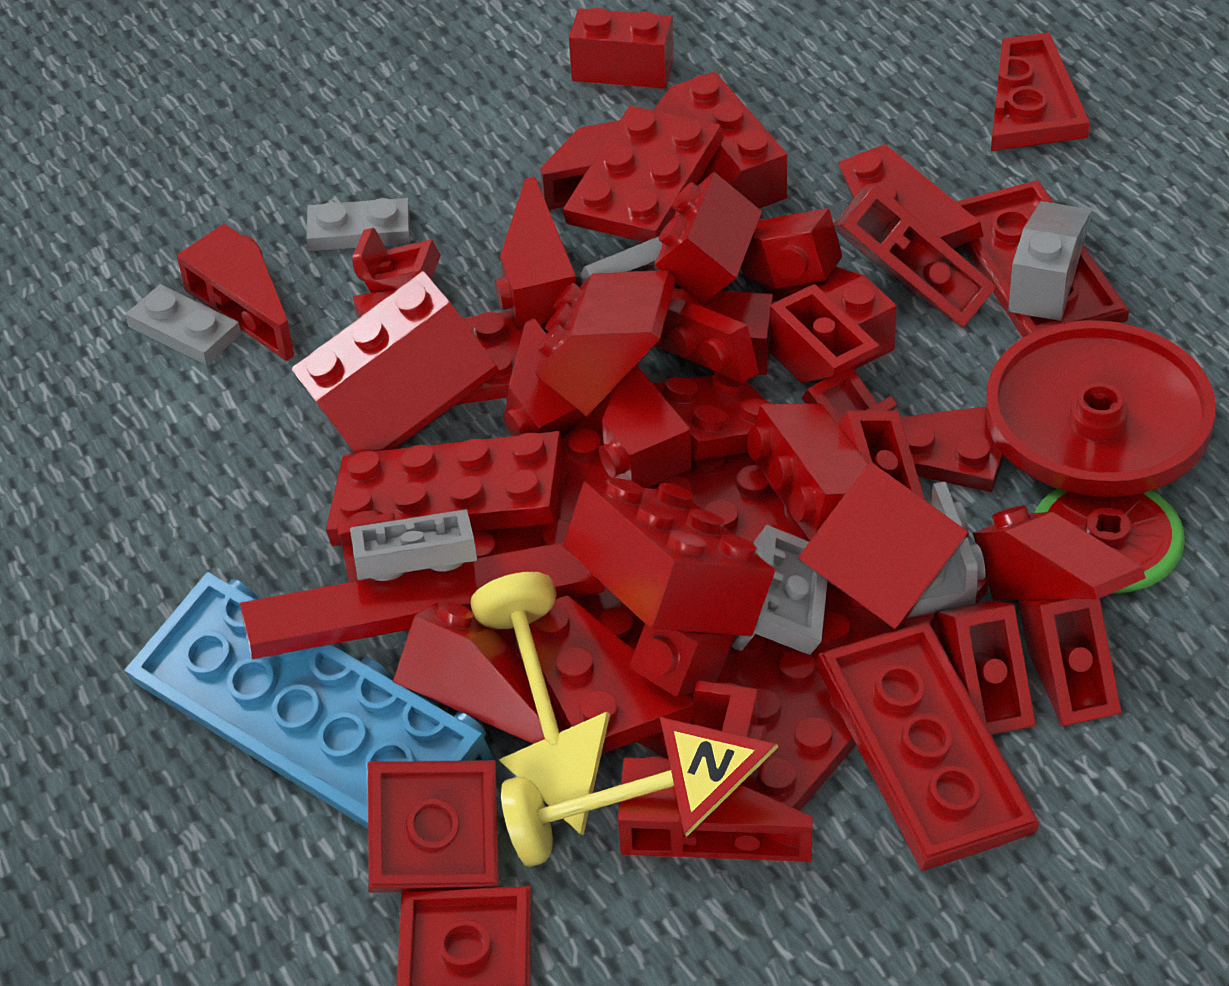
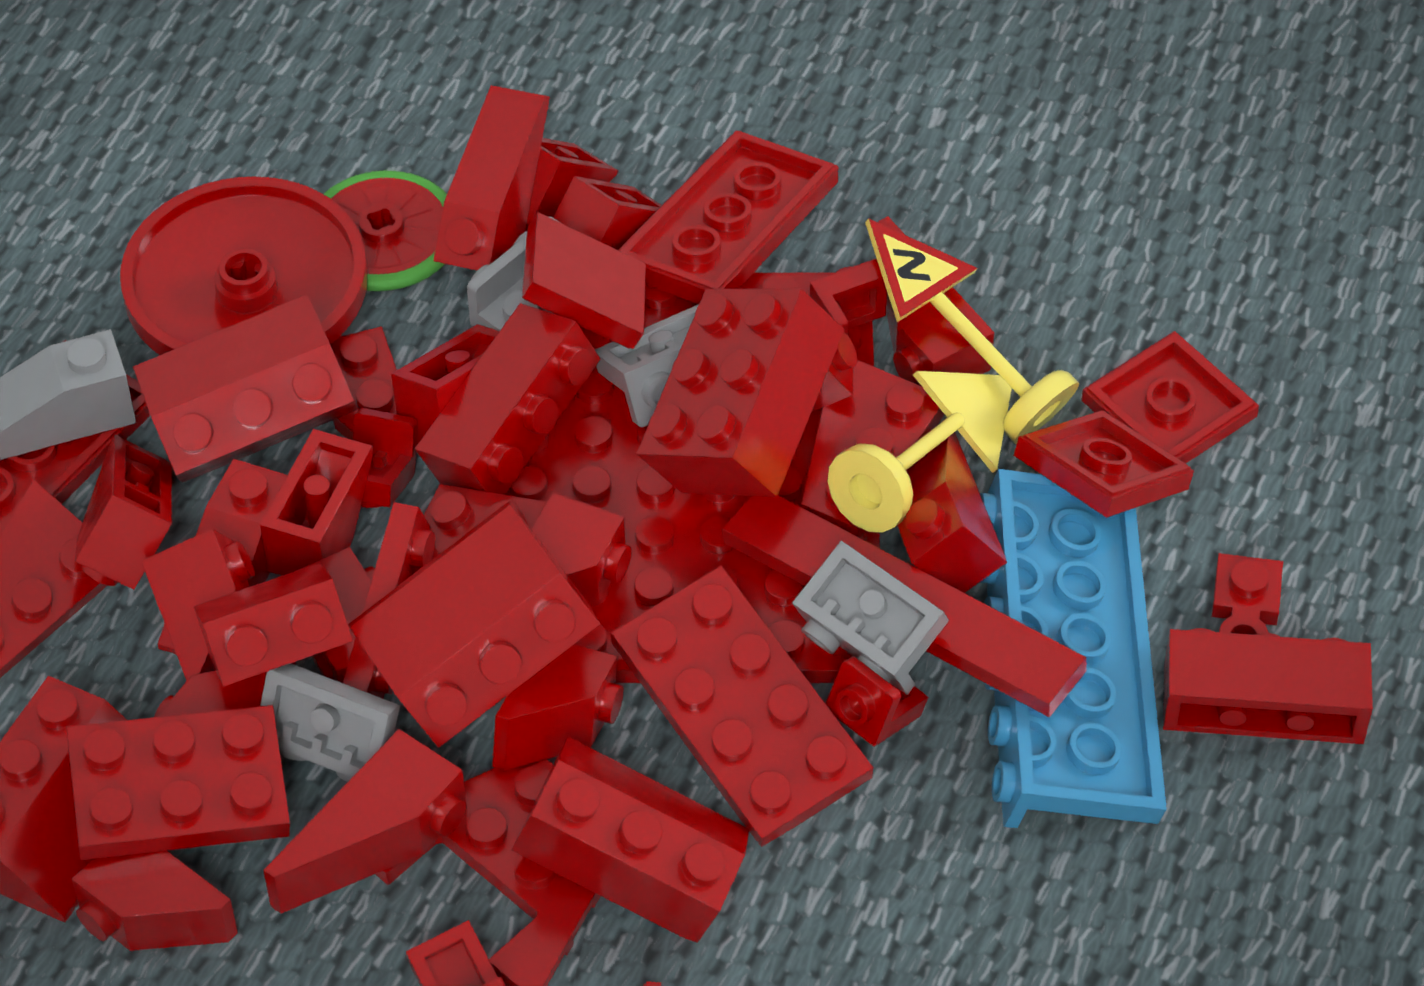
camera: 130 degrees left, 5 degrees up
(146, 801) = (1267, 686): none -> red brick
(239, 866) = (1247, 593): none -> red plate
(959, 341) = (244, 388): none -> red slope

